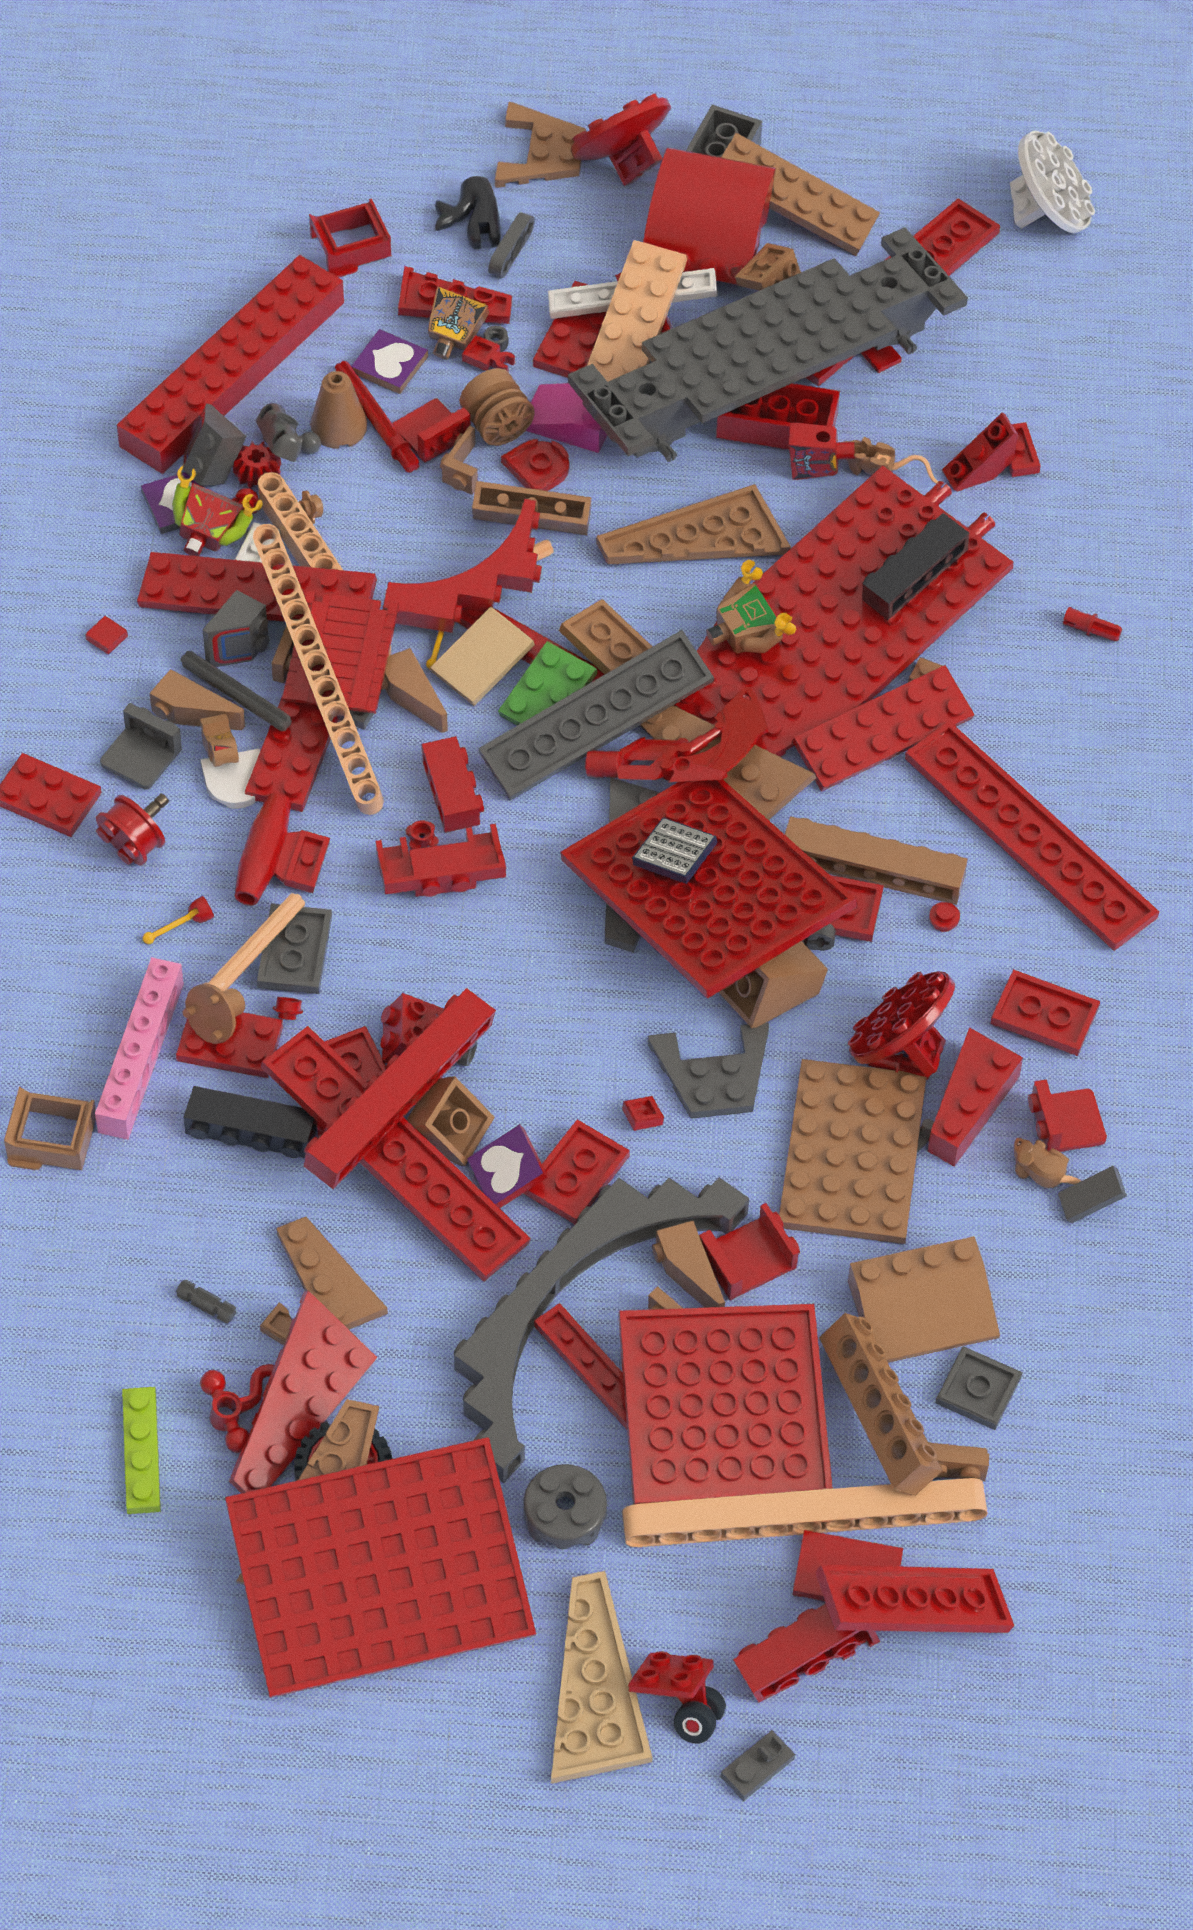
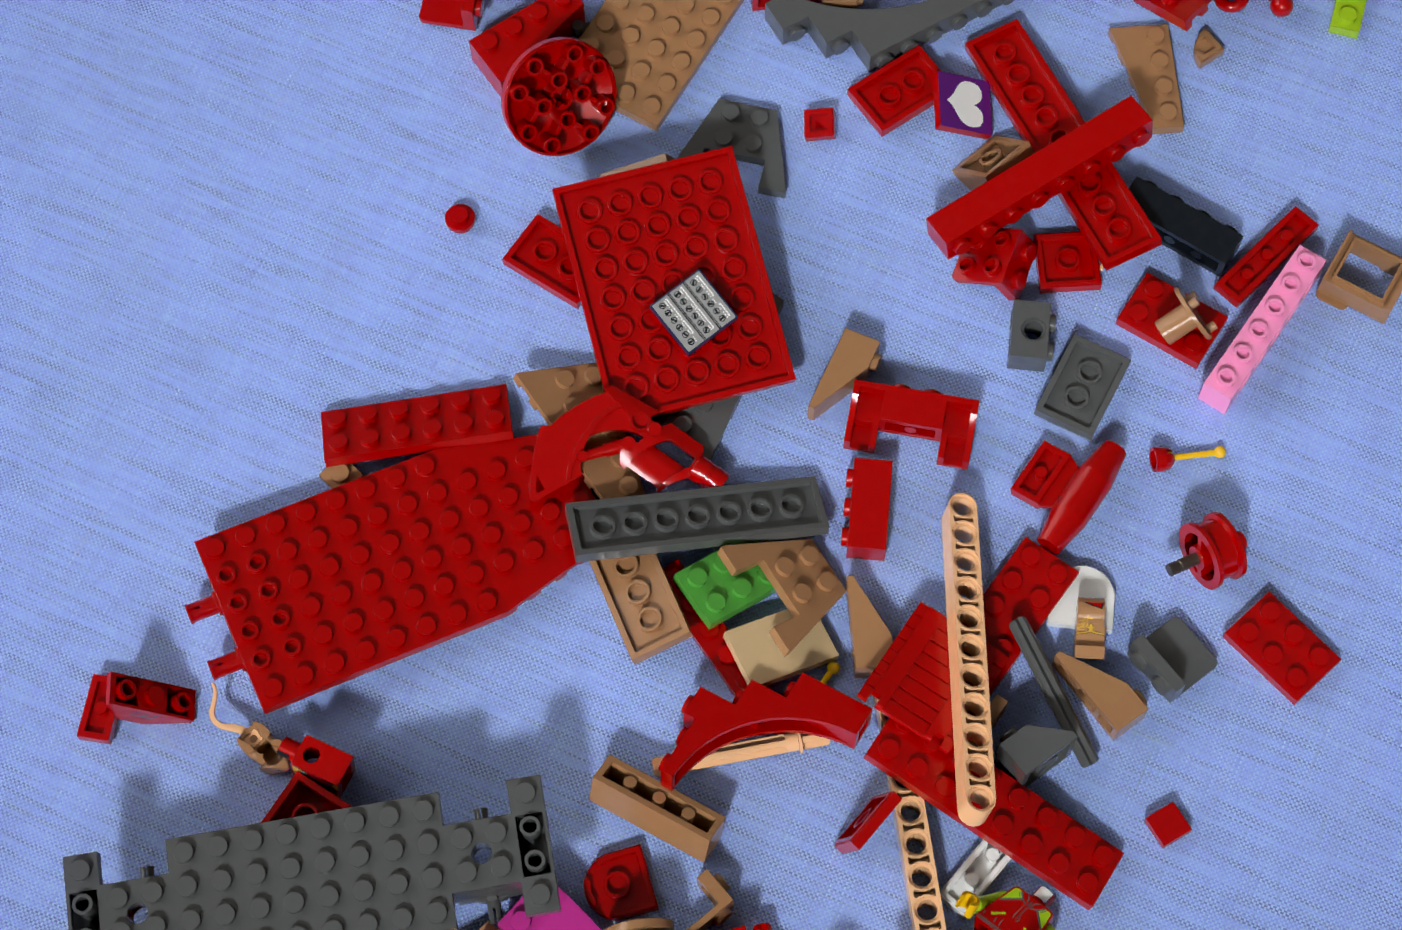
camera: 155 degrees left, 10 degrees up
(154, 1124) = (1266, 257): none -> red plate
(206, 1301) = (1264, 86): dark grey axle -> none
(258, 942) = (1179, 353): light nougat axle -> none
(288, 1008) = (1103, 332): red plate -> none
(311, 505) = (895, 909): medium nougat plate -> none
(355, 540) = (867, 822): none -> red tile
(359, 959) = (1026, 352): none -> dark grey brick
(422, 828) = (916, 460): red plate -> none
(487, 708) = (799, 578): none -> medium nougat wing
(518, 892) = (852, 359): none -> medium nougat slope
(715, 528) = (477, 724): medium nougat wing -> none
(747, 618) = (498, 562): torso -> none
(880, 860) = (498, 290): medium nougat brick -> none
(915, 566) = (299, 556): black brick -> none
(1032, 835) = (339, 272): red plate -> none
(1045, 1012) = (420, 97): red plate -> none
(1091, 624) = (150, 473): red axle -> none

